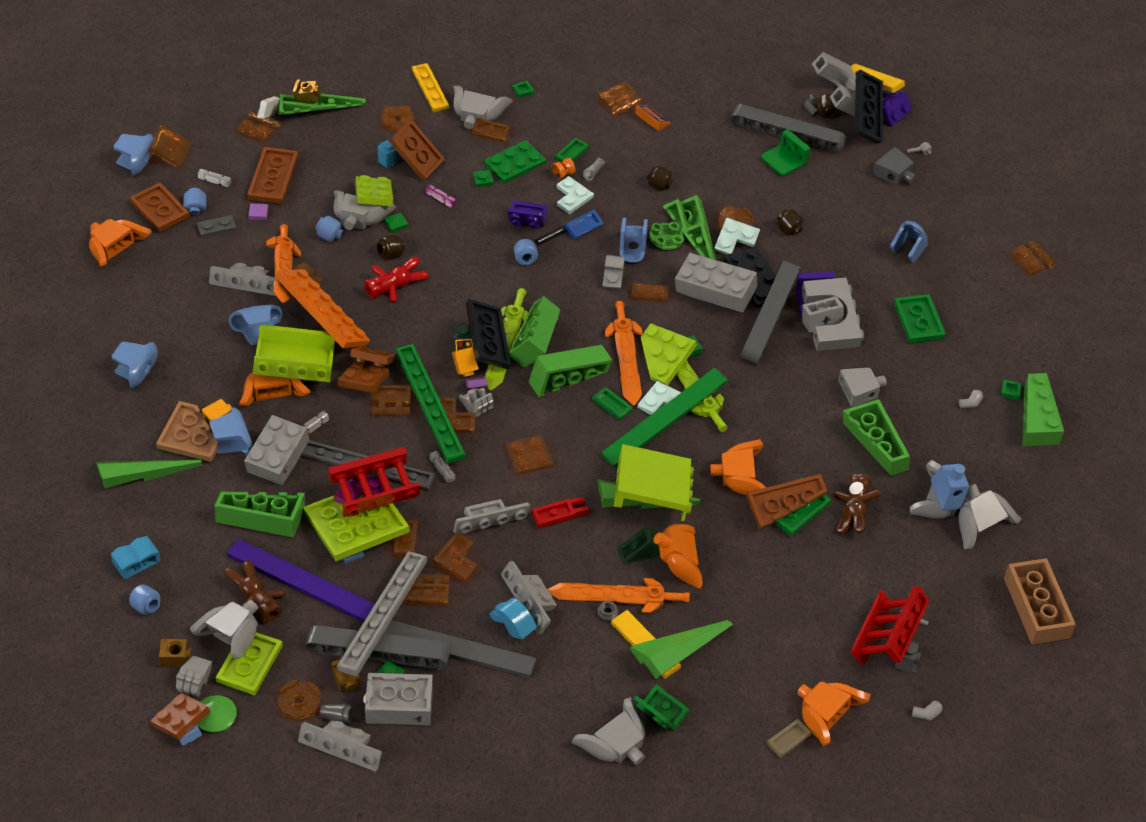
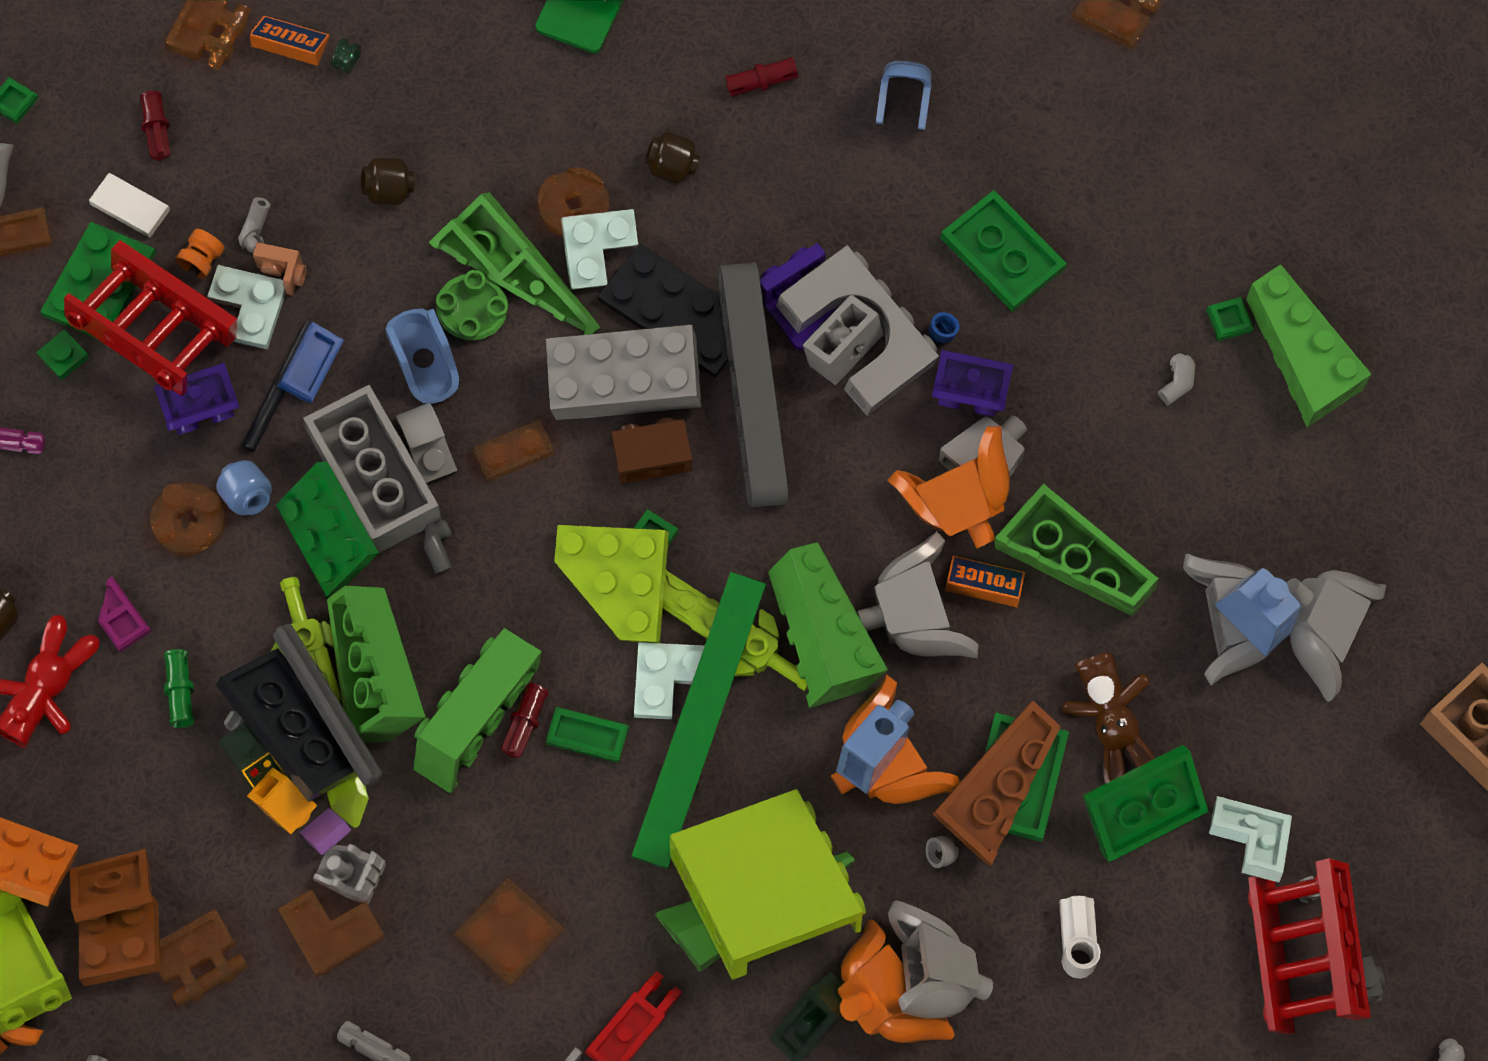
camera: 30 degrees left, 20 degrees up
(430, 404) = (275, 931): green tile -> none
(443, 274) = (120, 618): none -> magenta tile
(450, 307) = (178, 688): none -> green pin
(504, 251) = (198, 535): none -> clear orange plate
(507, 334) = (327, 704): none -> dark grey axle
(536, 165) = (156, 286): none -> red fence
(546, 142) = (129, 205): none -> white tile
(551, 276) = (327, 528): none -> green plate
(572, 150) = (189, 200): green tile -> none
(575, 120) = (155, 125): none -> dark red axle
(584, 268) = (373, 468): none -> light grey brick
(588, 384) = (524, 720): none -> dark red axle
(592, 307) = (433, 546): none -> dark grey arm
(595, 185) = (278, 260): none -> nougat bracket
(626, 353) = (549, 610): orange sword -> none
(672, 130) = (345, 55): none -> clear green bush
(709, 552) = (937, 967): none -> light grey torso
(710, 317) = (651, 450): none -> reddish brown brick
(735, 452) = (874, 745): none -> medium blue torso
(742, 517) = (944, 844): none -> light grey hinge
(743, 410) = (824, 627): none -> bright green wedge
(784, 577) = (1078, 933): none -> white piece
(789, 422) = (913, 608): none -> light grey torso
(829, 431) = (985, 581): none -> slope
(841, 388) = (963, 495): none -> orange torso
(849, 539) = (1145, 803): none -> green plate
(850, 213) = (761, 77): none -> dark red pin
(872, 355) = (972, 382): none -> dark purple bracket
(874, 335) = (948, 325): none -> blue hinge
(894, 579) = (1260, 829): none -> light aqua plate

